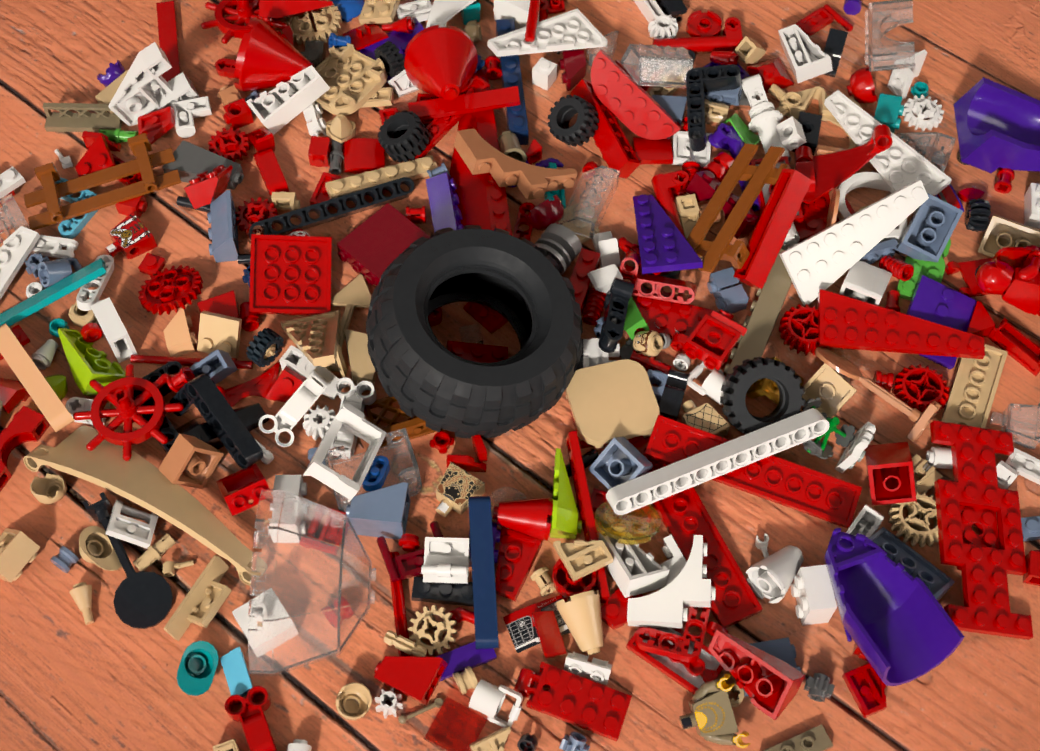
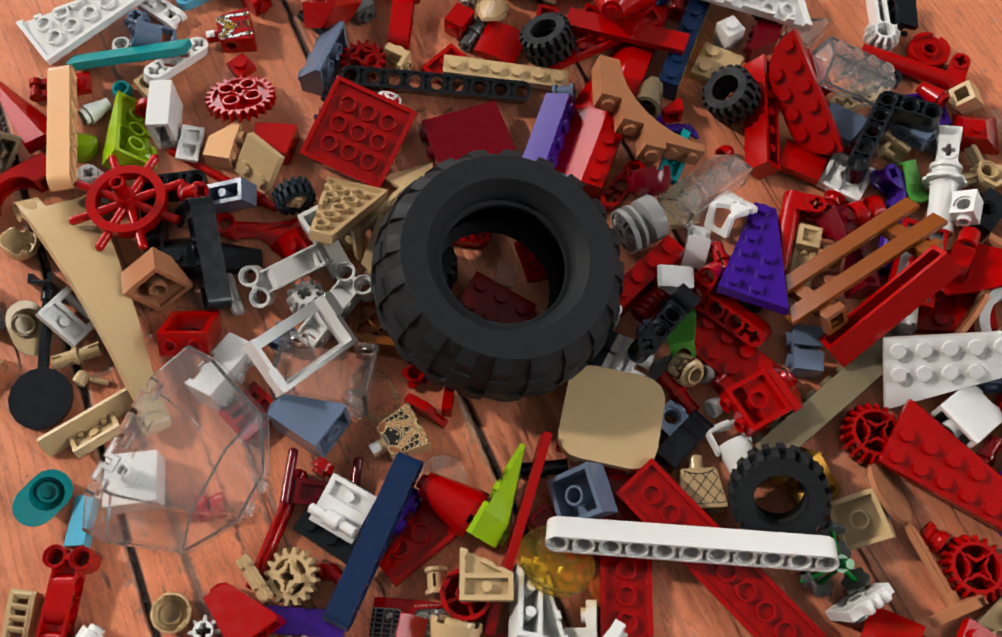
camera: 25 degrees right, 5 degrees up
(147, 345) = (190, 143): none -> white slope
(250, 321) = (297, 162): red cone -> none
(377, 474) = (323, 380): blue plate -> none
(422, 211) = (519, 124): red bush -> none
(542, 100) = (711, 59): none -> tan plate
(625, 205) = (737, 207): none -> white piece

